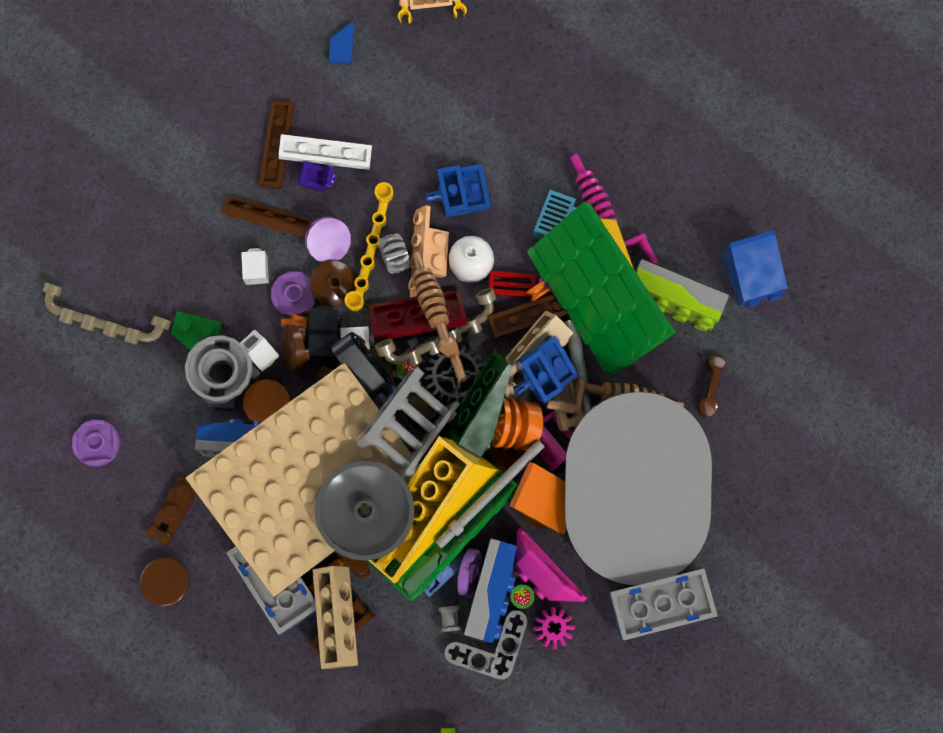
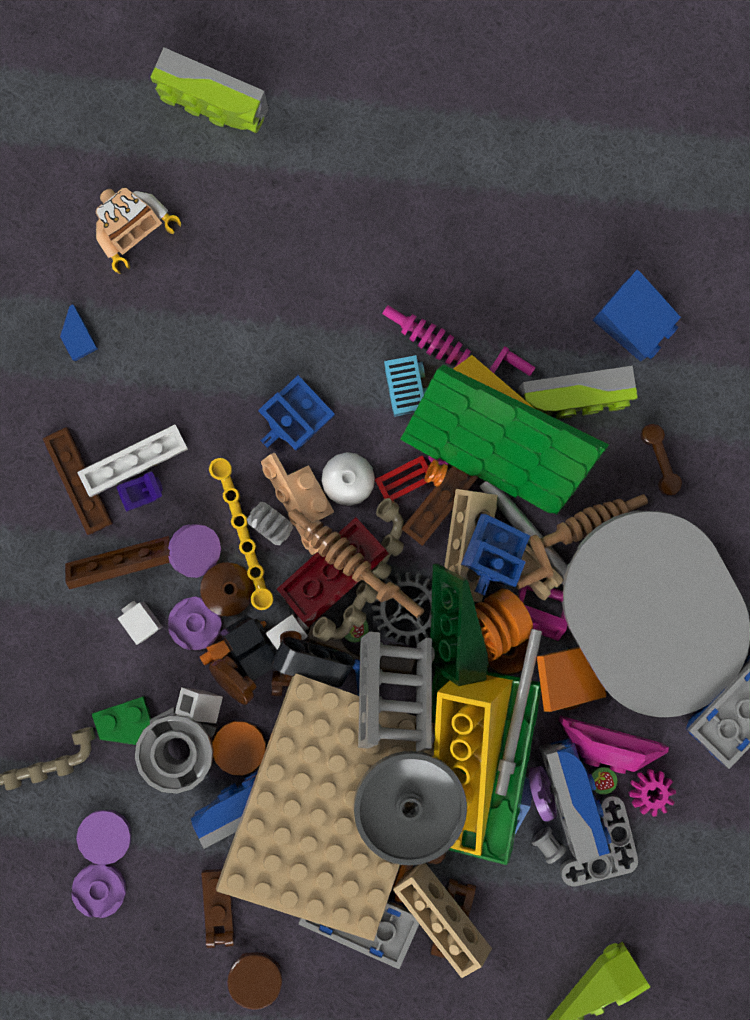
camera: 35 degrees left, 10 degrees up
(126, 406) = (104, 837): none -> medium lavender tile

